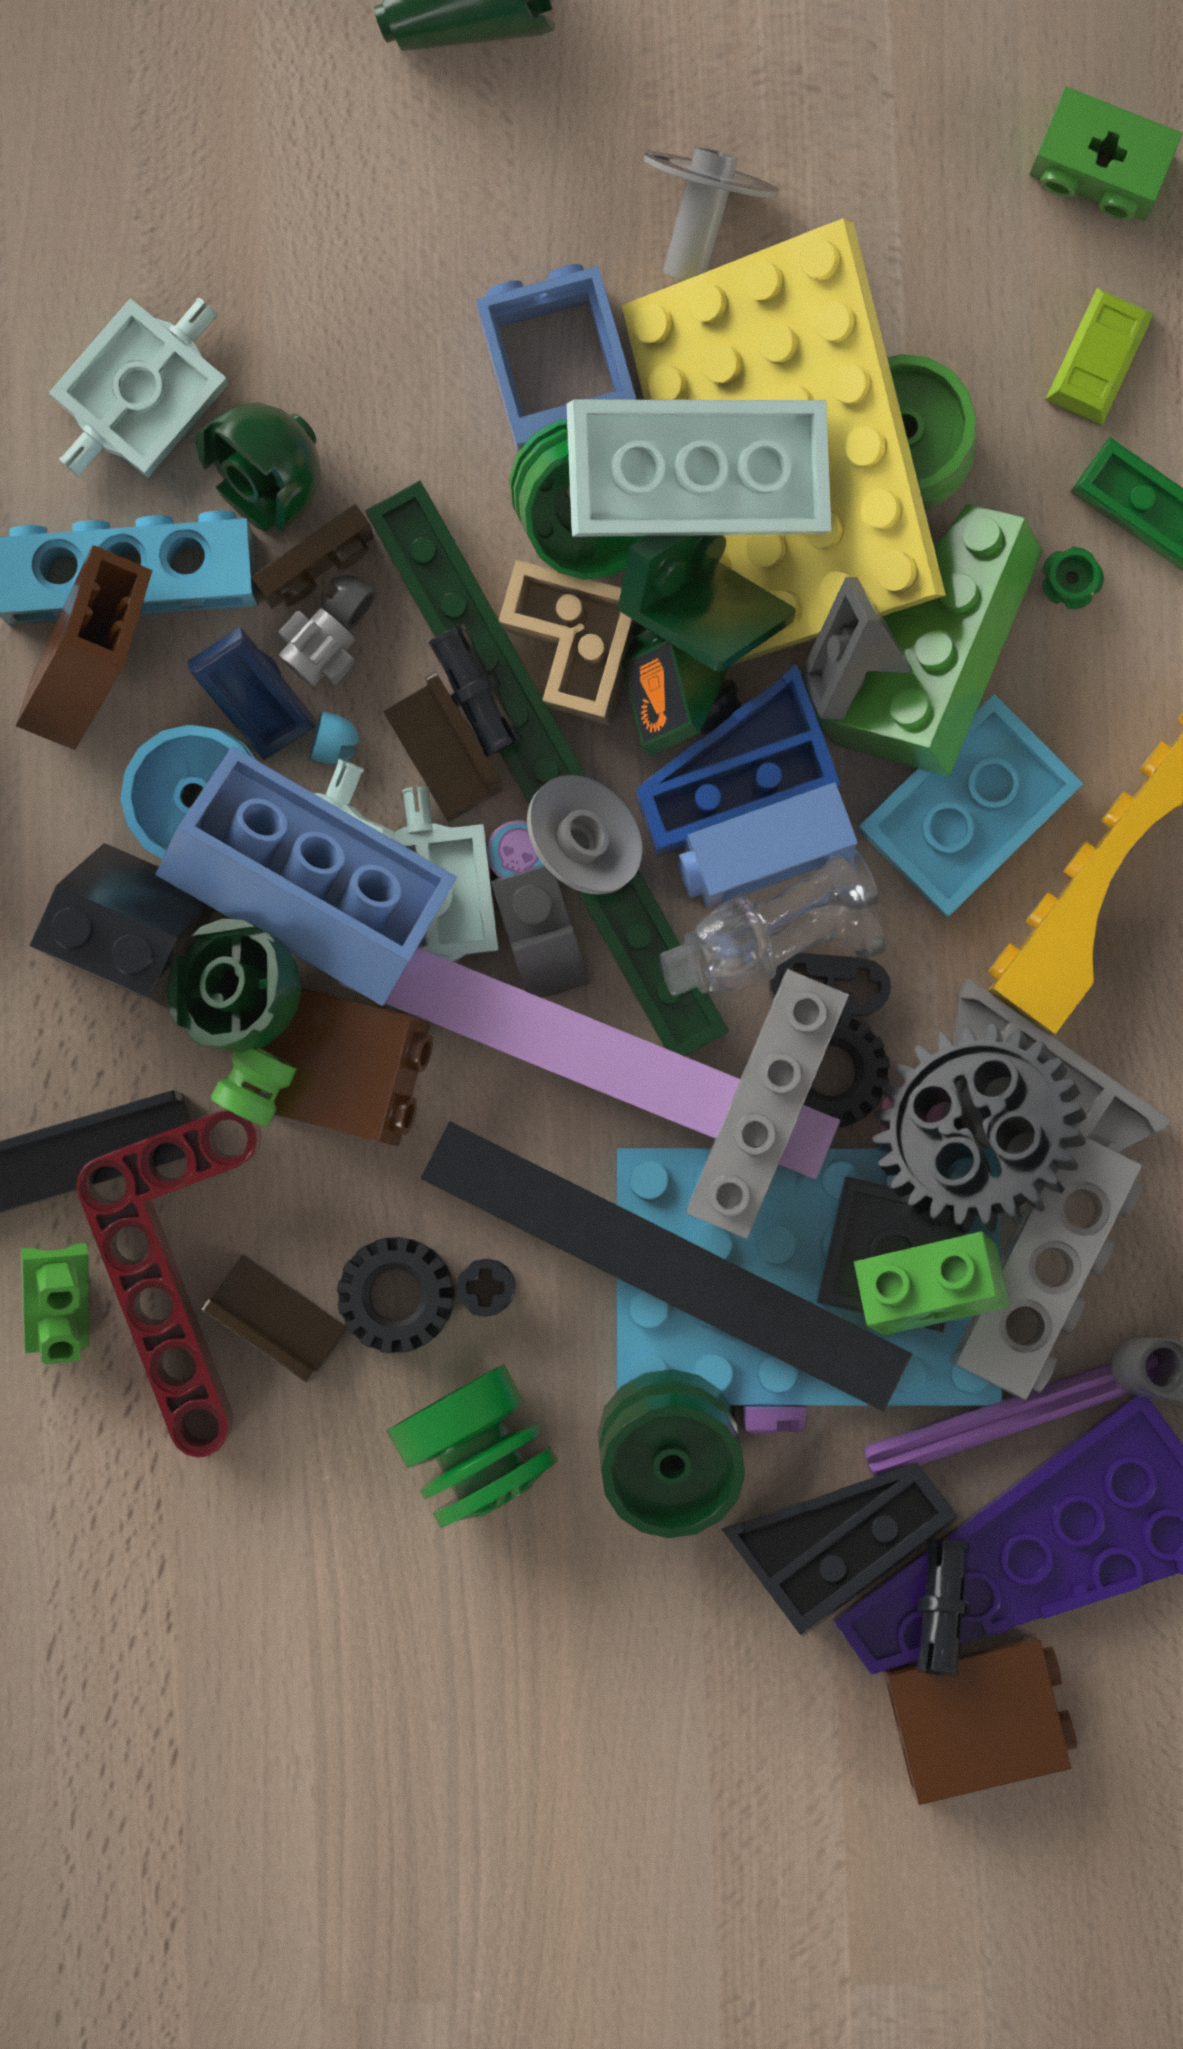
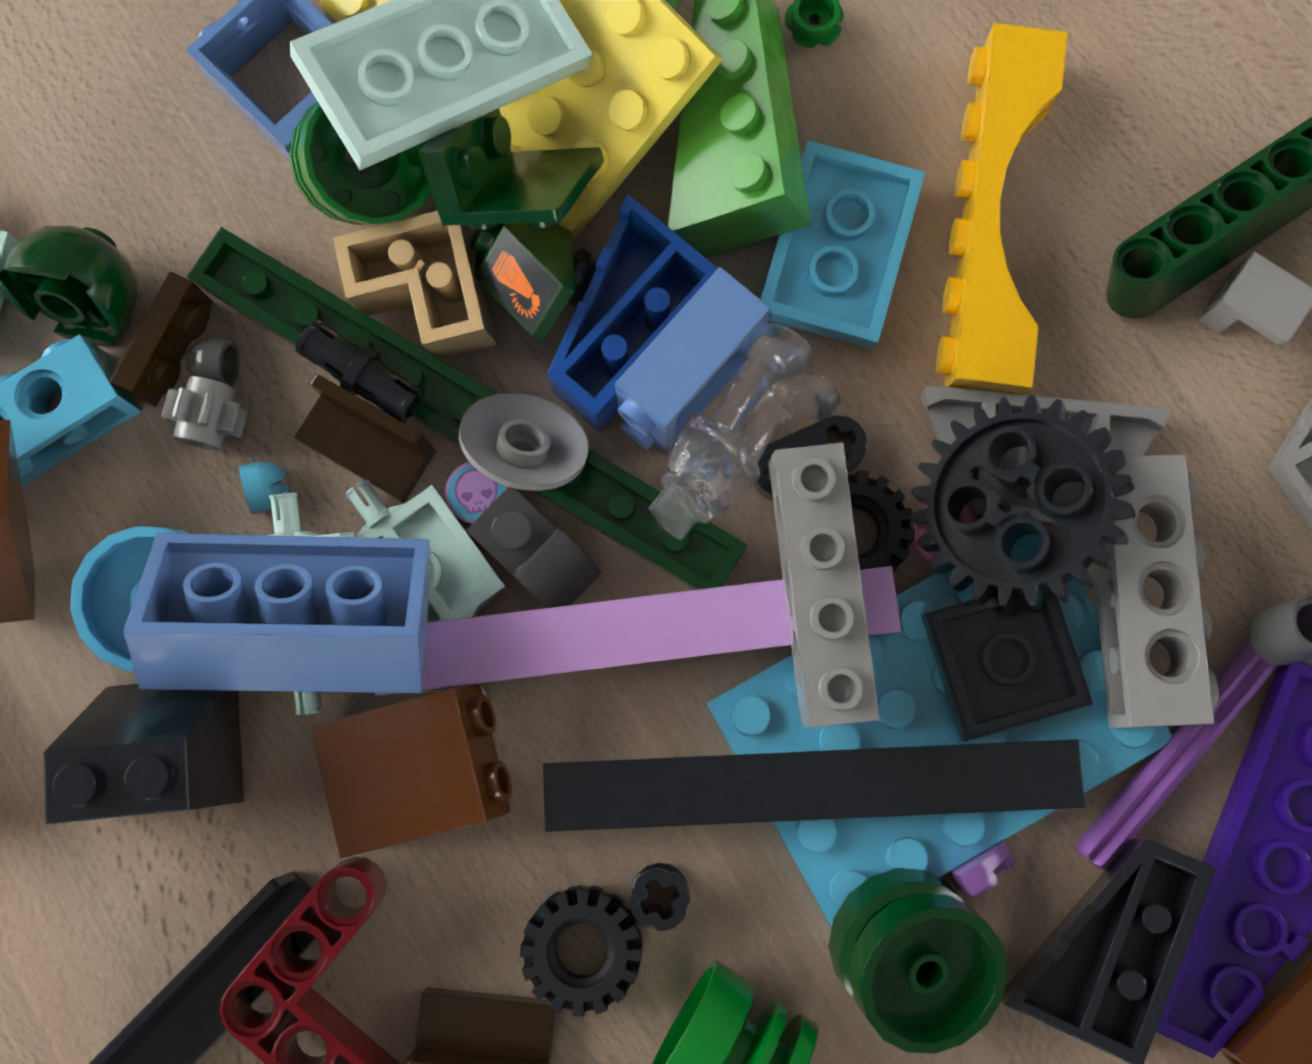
camera: 25 degrees left, 5 degrees down
(234, 987) = (271, 753): dark green cylinder -> none
(251, 693) = (162, 481): dark blue tile -> none
(261, 1071) = (339, 833): bright green wheel -> none
(848, 646) = (663, 140): dark grey slope -> none
(931, 1284) = (1070, 664): bright green brick -> none
(943, 1607) = (1251, 963): black pin -> none

